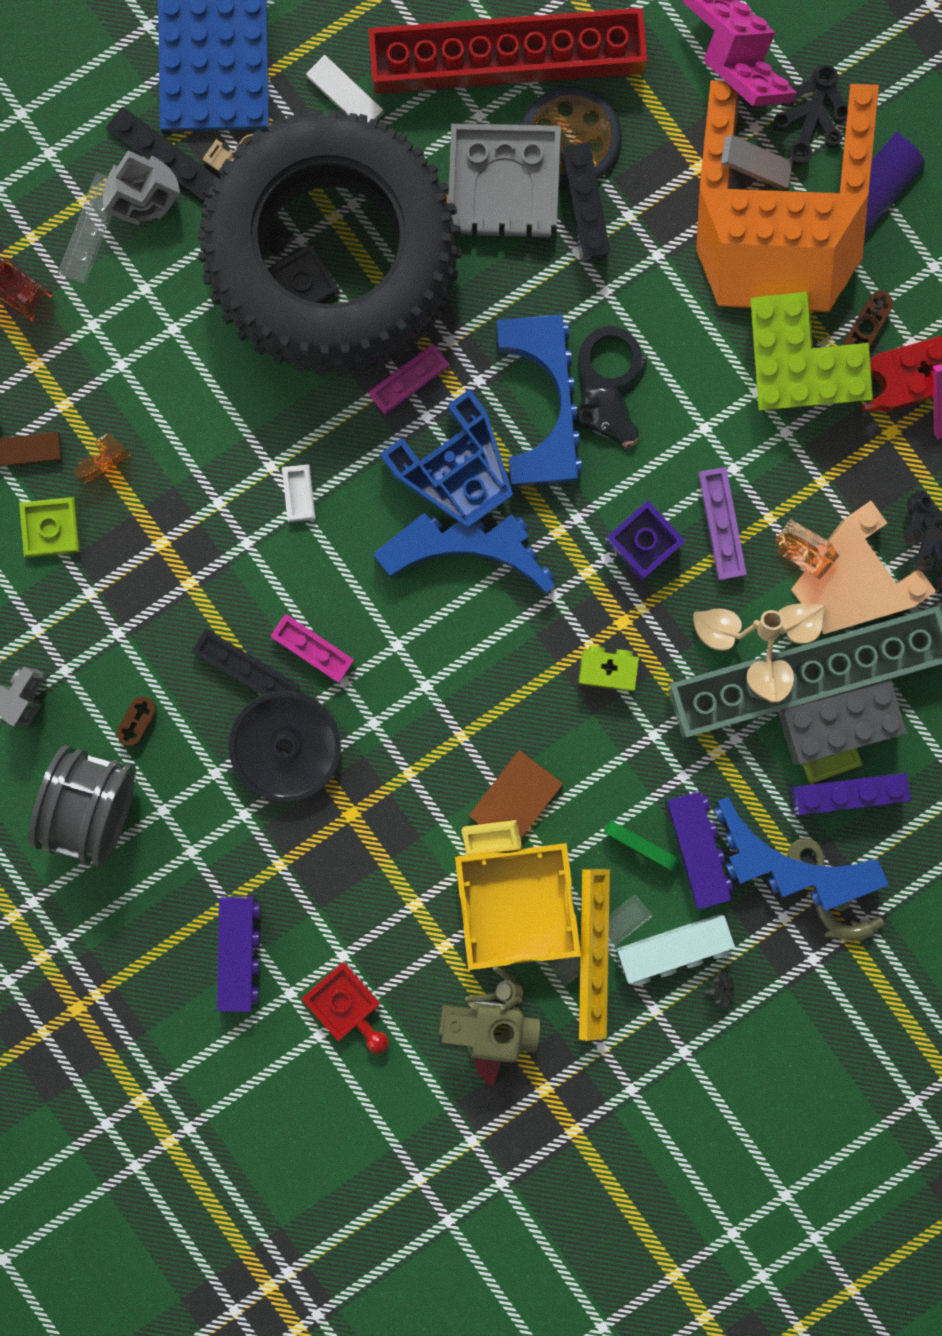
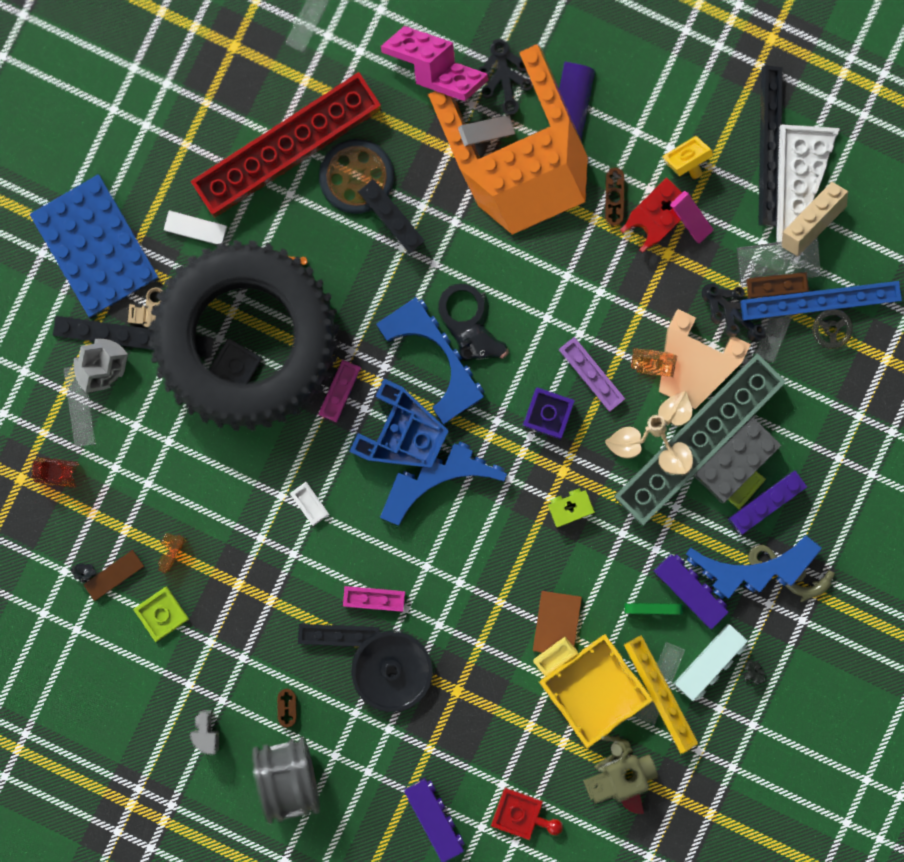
camera: 25 degrees left, 0 degrees up
(505, 178) = (330, 229): light grey hinge -> none
(795, 372) = (585, 252): lime piece -> none

